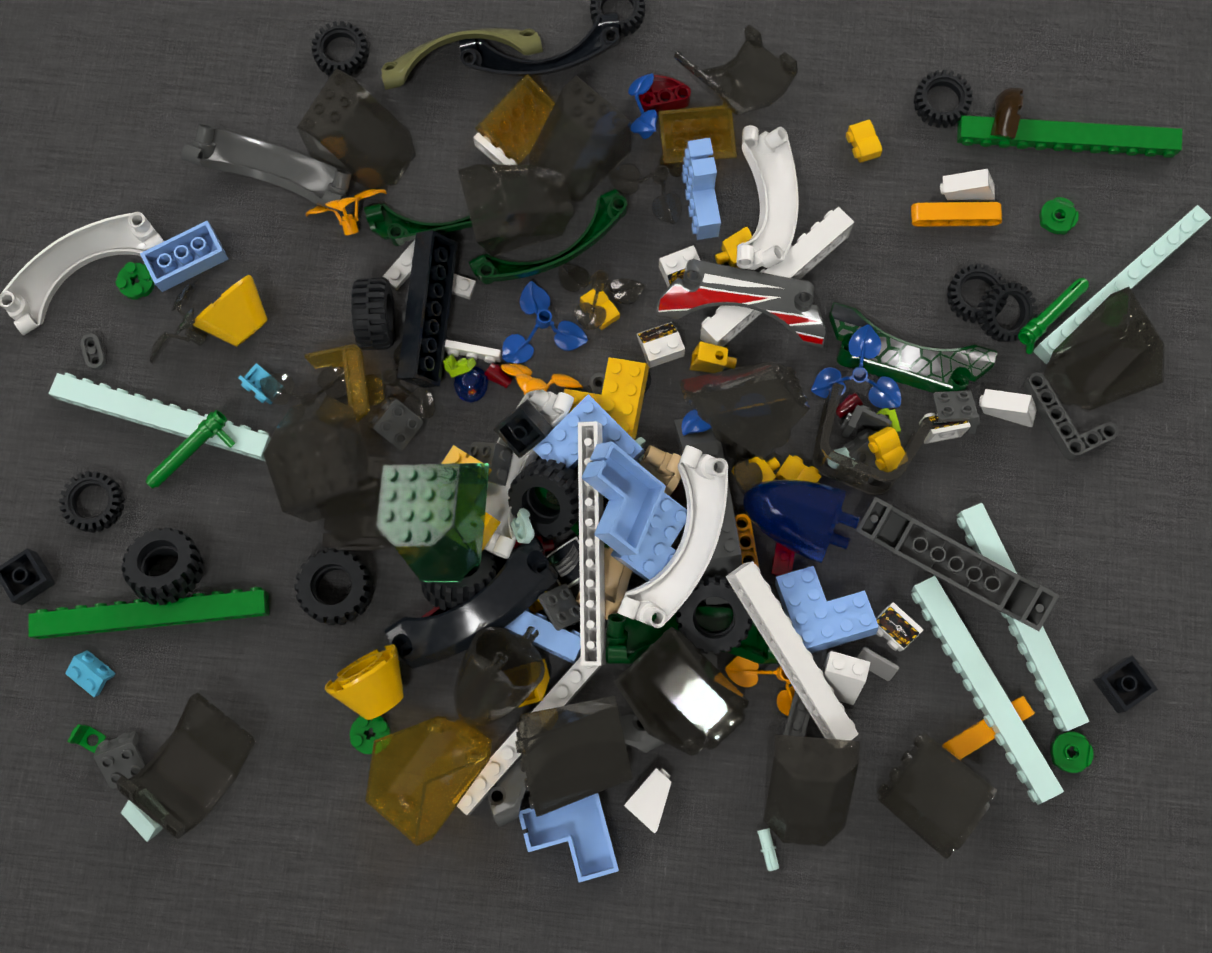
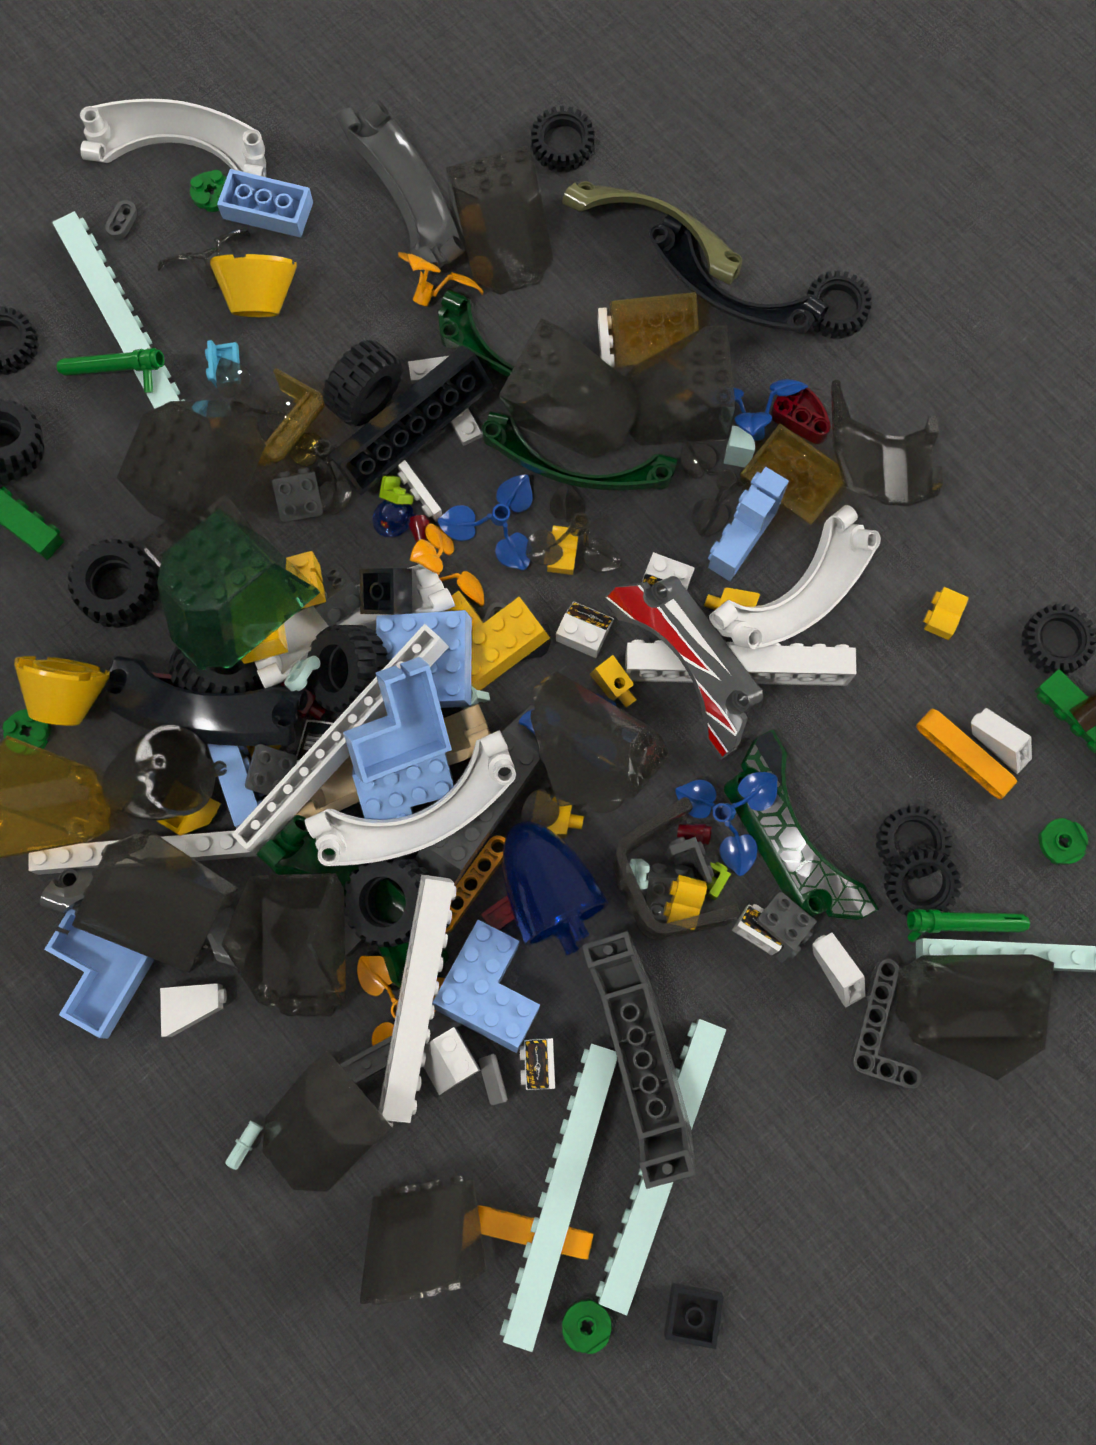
camera: 40 degrees right, 0 degrees up
(647, 148) = (739, 448): none -> light aqua brick
(795, 470) = (588, 846): yellow brick -> none

